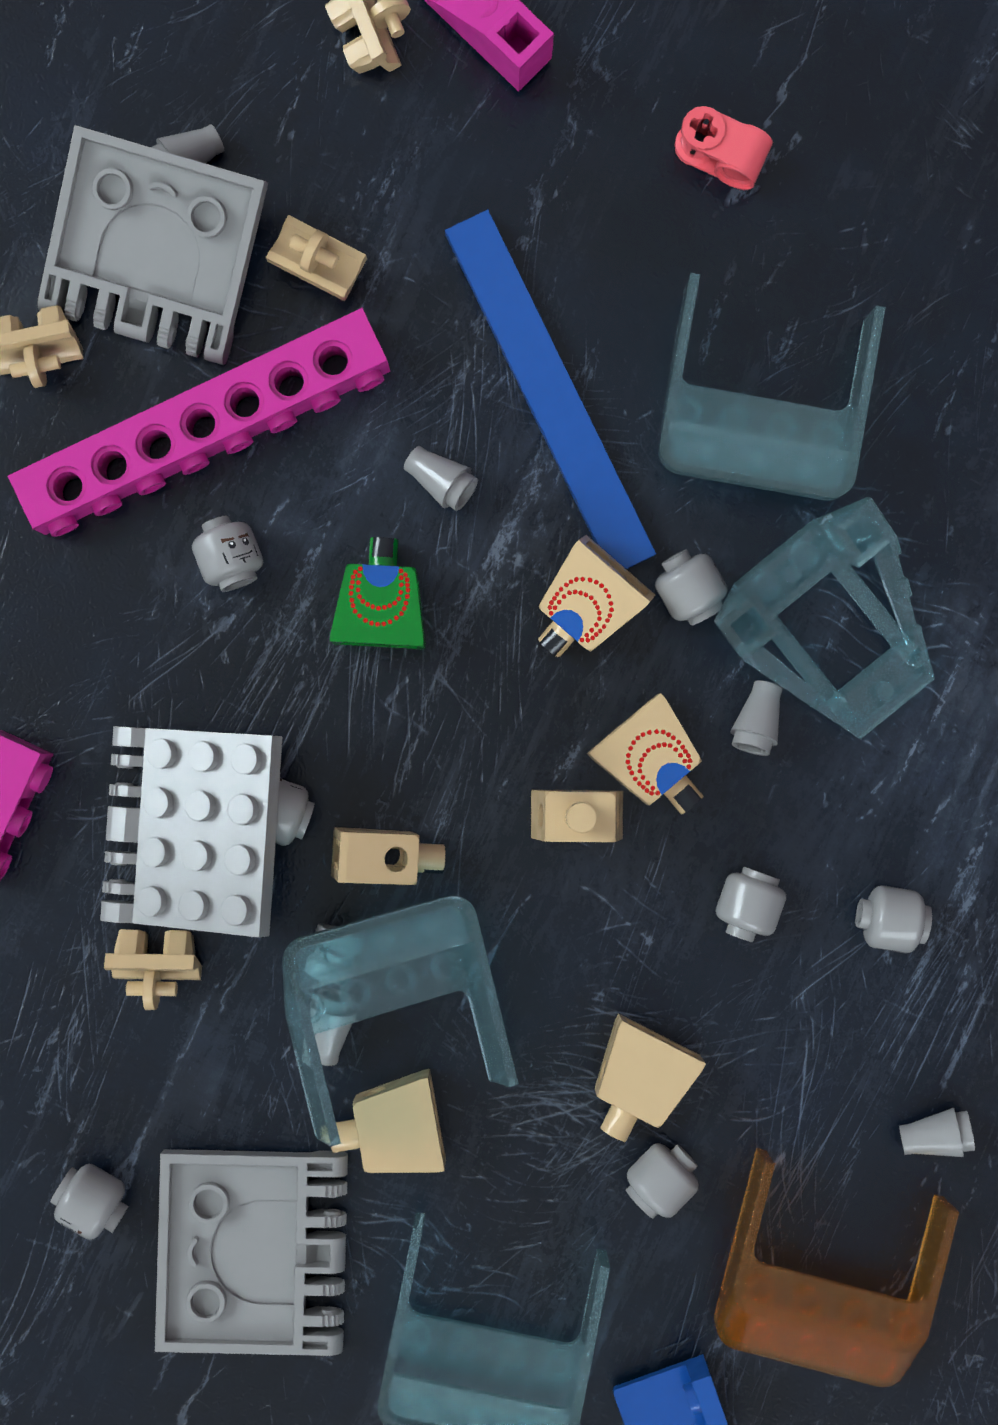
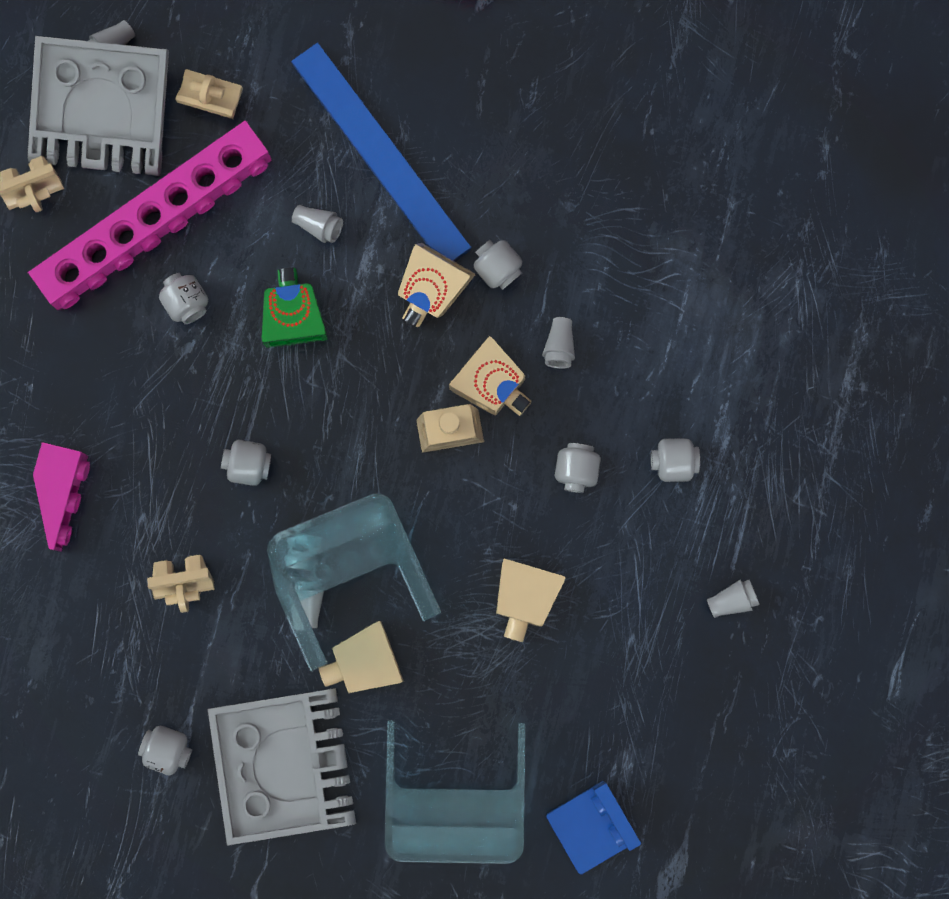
camera: 10 degrees left, 5 degrees down
(198, 830) = (196, 484): hinge -> none
(361, 853) = (308, 480): tan torso -> none
(662, 1180) = (552, 664): light grey head -> none
(760, 438) = (525, 158): clear light blue windscreen -> none
(821, 547) = (584, 220): clear light blue windscreen -> none
(823, 1320) = (678, 738): clear orange windscreen -> none

